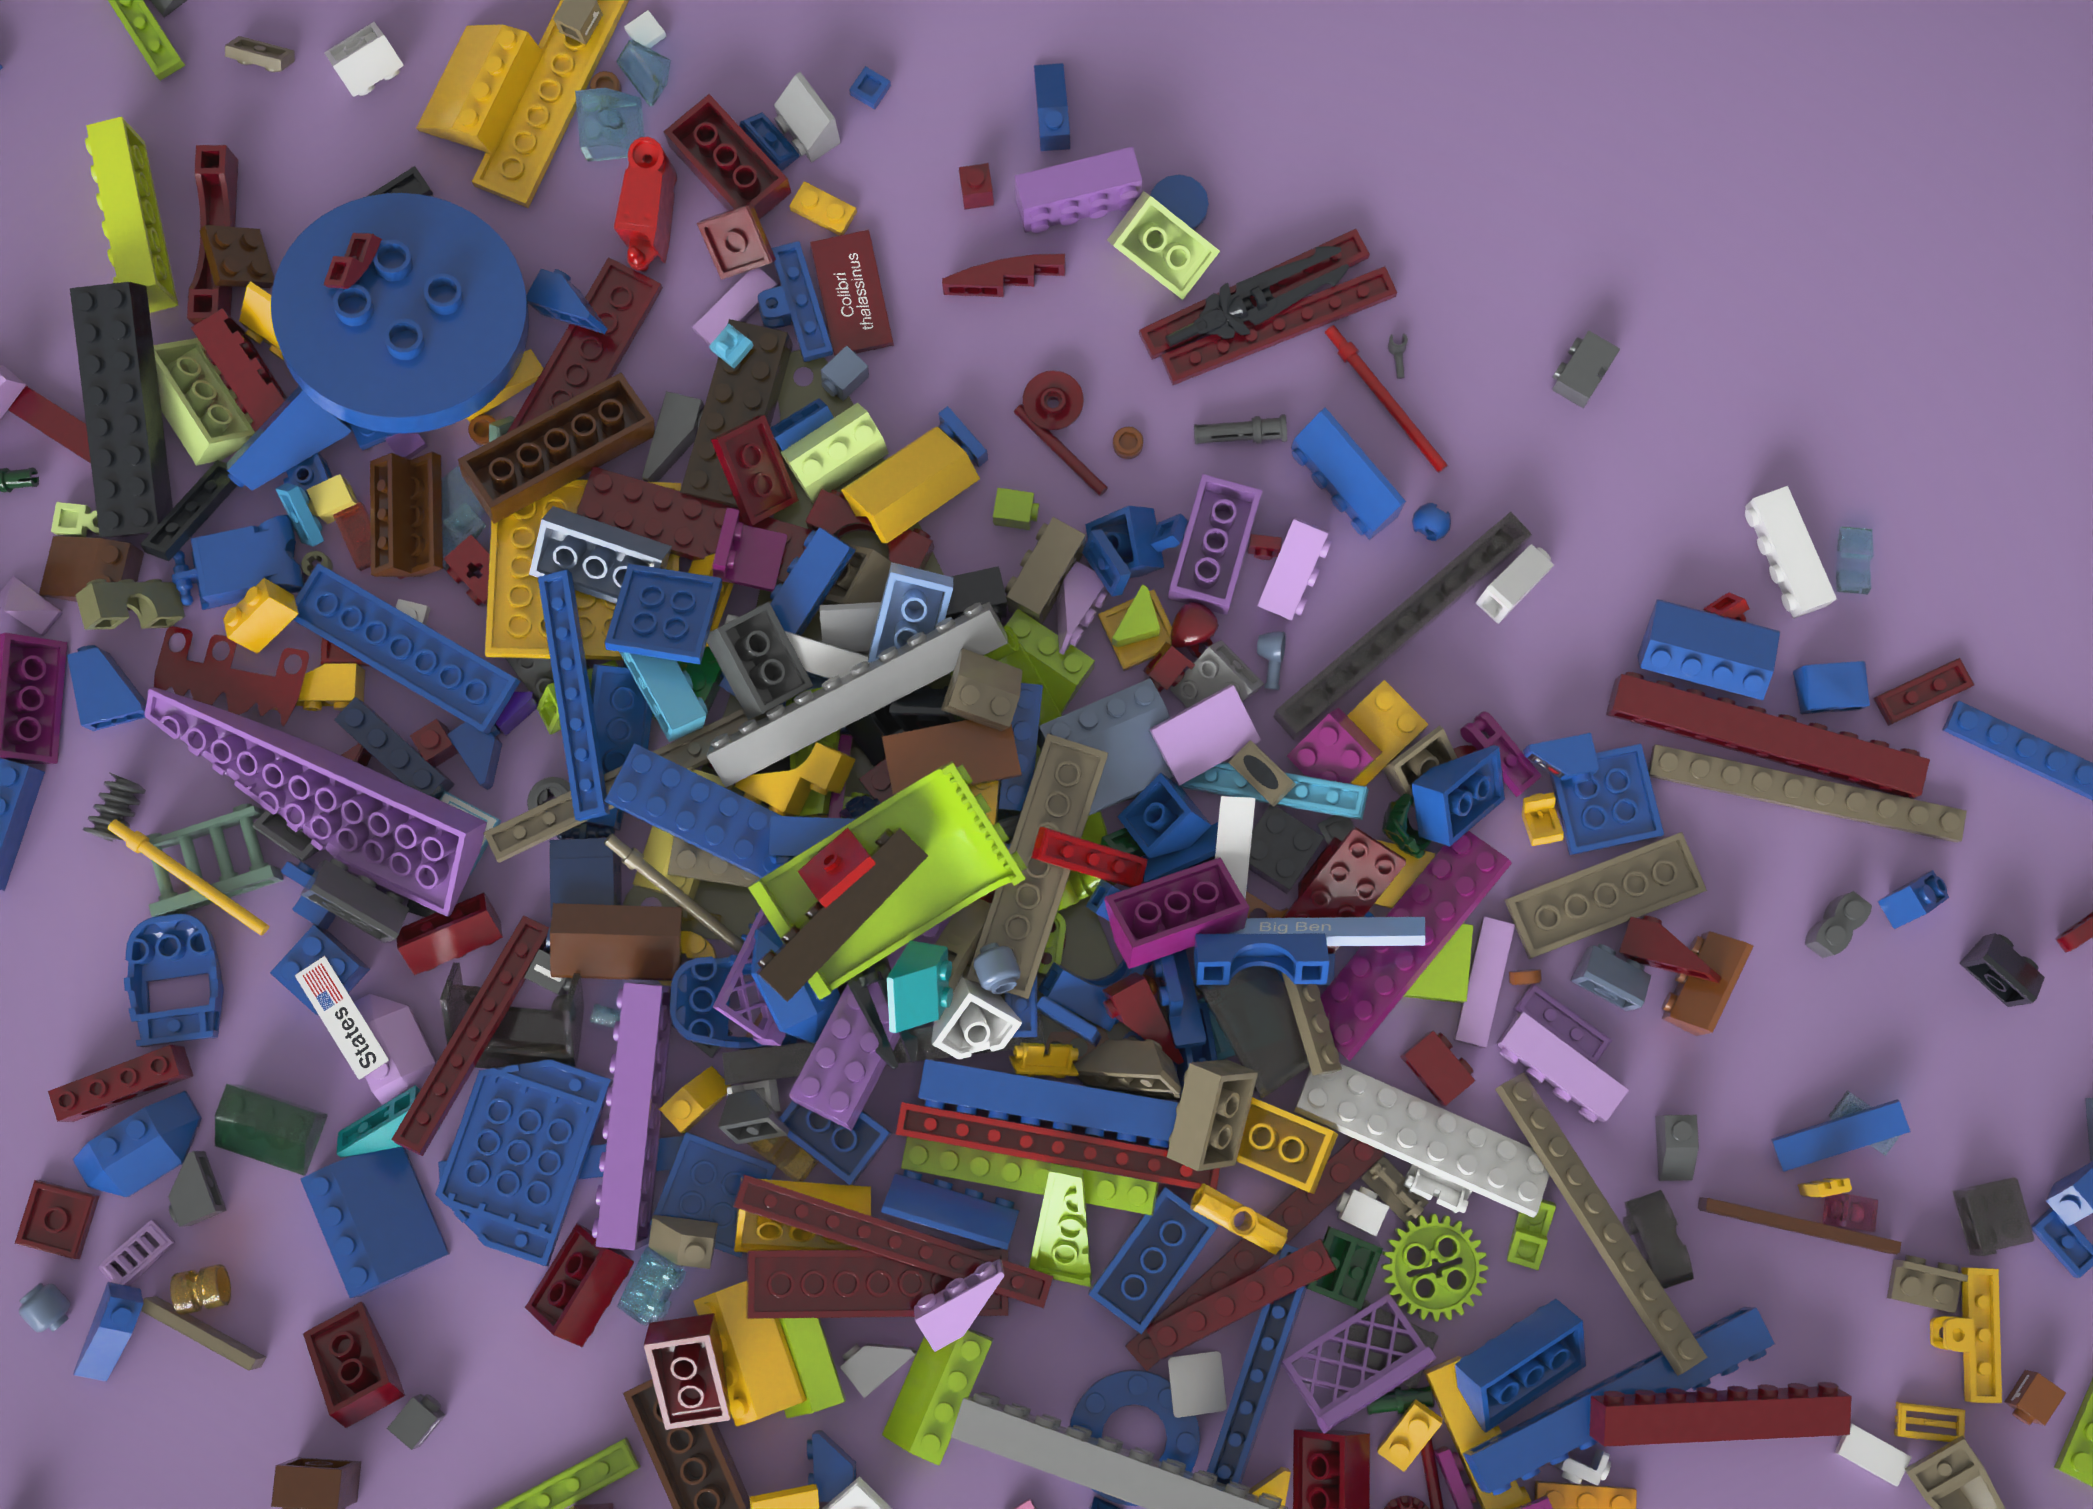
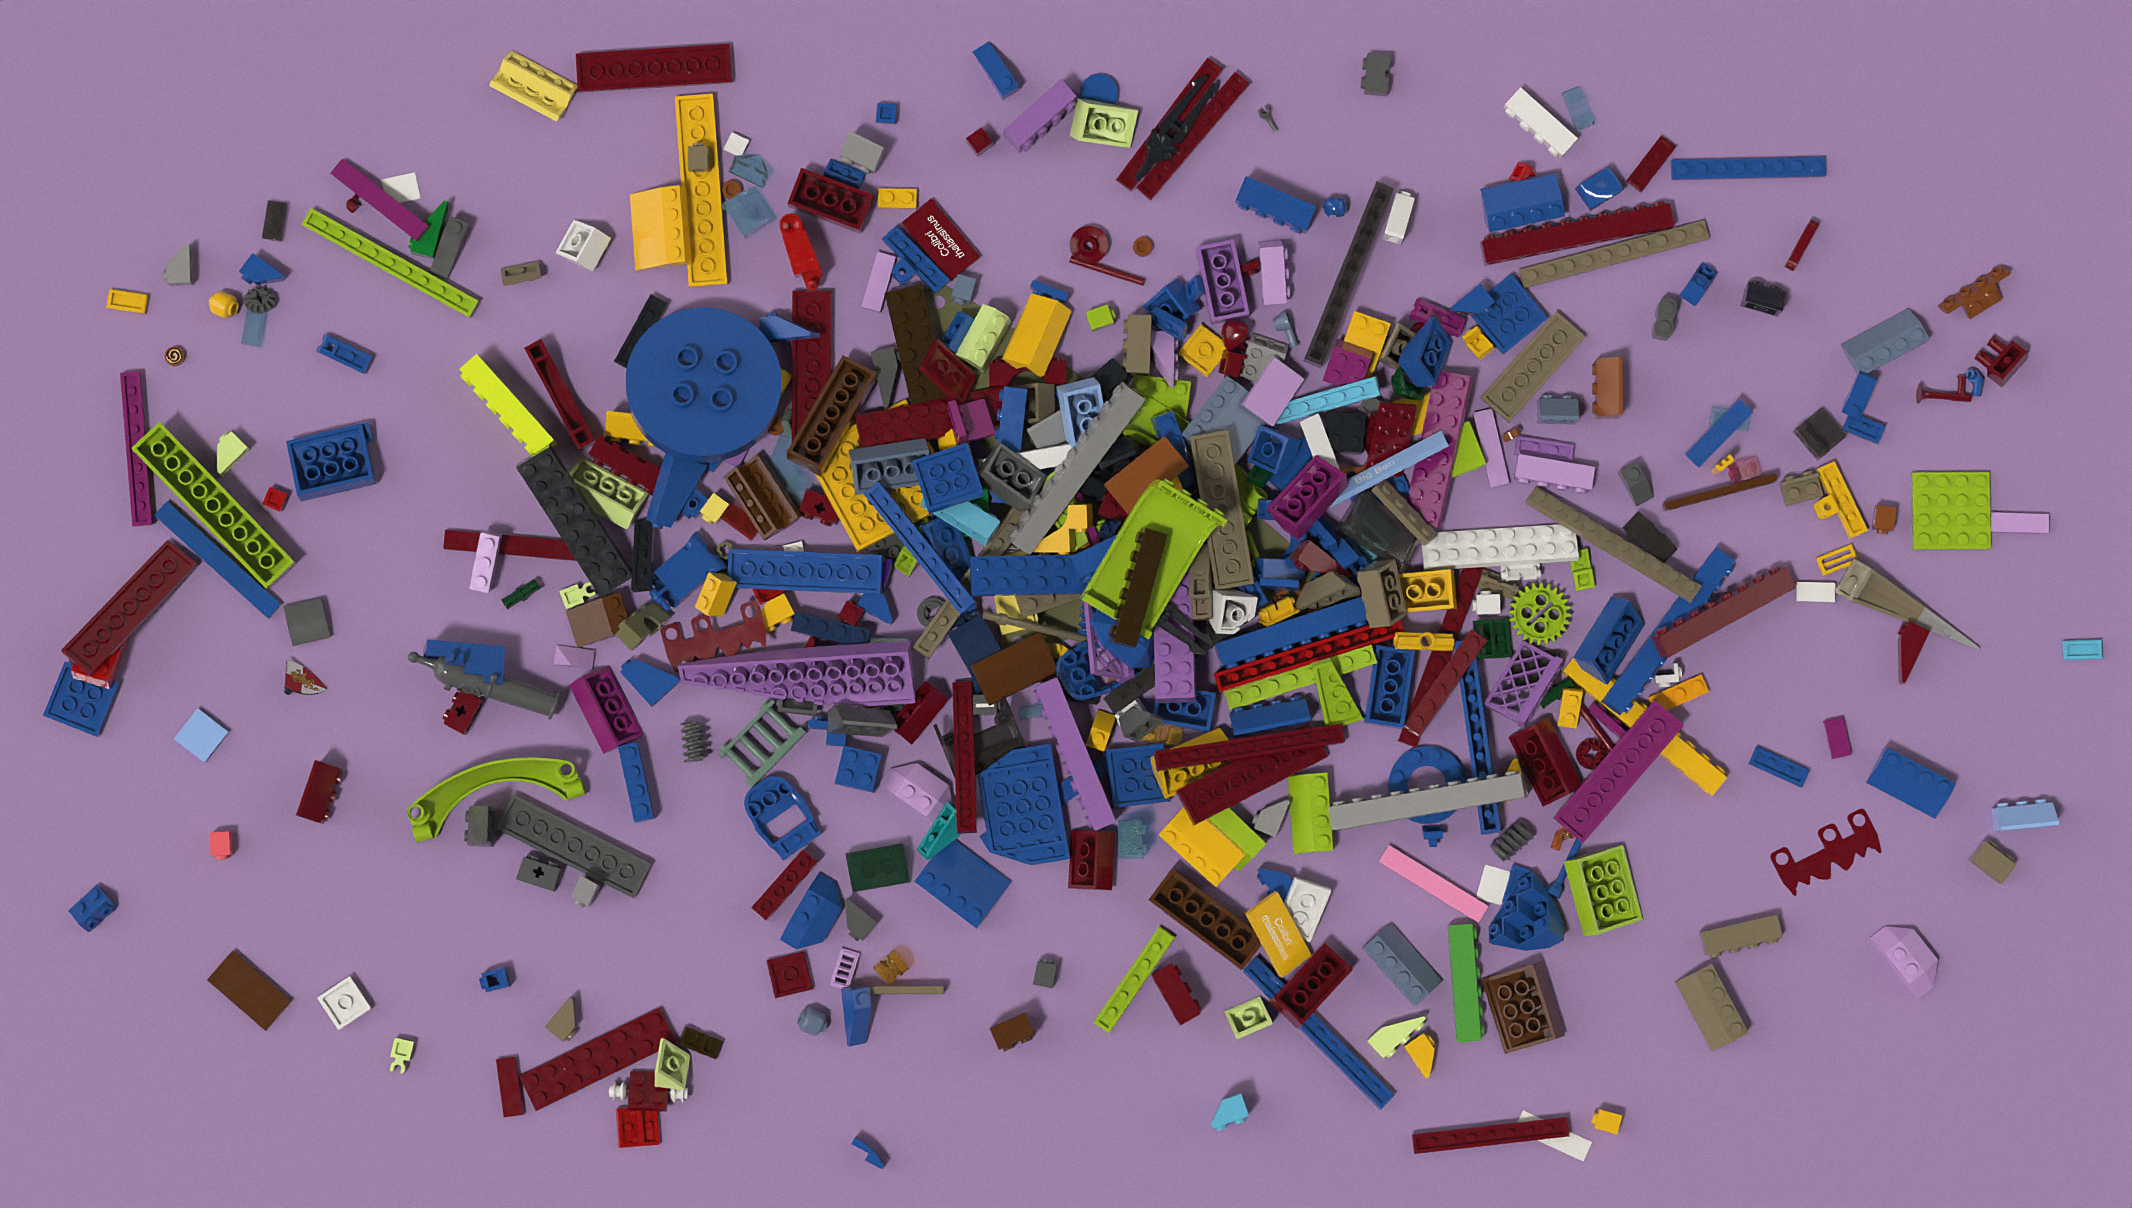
camera: 35 degrees left, 5 degrees up
(140, 843) = (722, 751): yellow bar -> none
(236, 256) = (581, 399): reddish brown plate -> none
(305, 524) = (704, 527): dark azure plate -> none
(341, 1017) = (888, 785): white sticker -> none
(348, 269) = (669, 371): dark red slope -> none
(352, 1366) = (994, 963): dark red slope -> none
(684, 1240) = (1137, 805): dark tan slope -> none
(688, 1371) = (1178, 868): dark red slope -> none
(731, 346) = (896, 308): medium azure tile -> none
(736, 241) = (862, 245): plate -> none
(836, 867) = (1123, 565): red plate -> none
(919, 986) = (1196, 605): teal slope -> none
(953, 1310) = (1300, 763): lavender slope -> none
(983, 690) = (1147, 431): dark tan slope -> none
(991, 277) = (1016, 191): dark red slope -> none
(997, 968) = (1230, 575): sand blue head -> none
(1089, 858) = (1247, 492): red tile -> none
(1139, 621) = (1203, 346): lime slope -> none
(1197, 1384) = (1446, 740): white sticker -> none
(1254, 430) = (1210, 203): dark grey pin -> none
(1262, 773) = (1314, 397): dark tan tile -> none
(1299, 956) = (1385, 486): blue arch -> none
(1349, 353) = (1240, 132): red bar -> none
(1438, 1067) = (1489, 507): dark red brick -> none
(1656, 947) = (1571, 382): dark red slope -> none

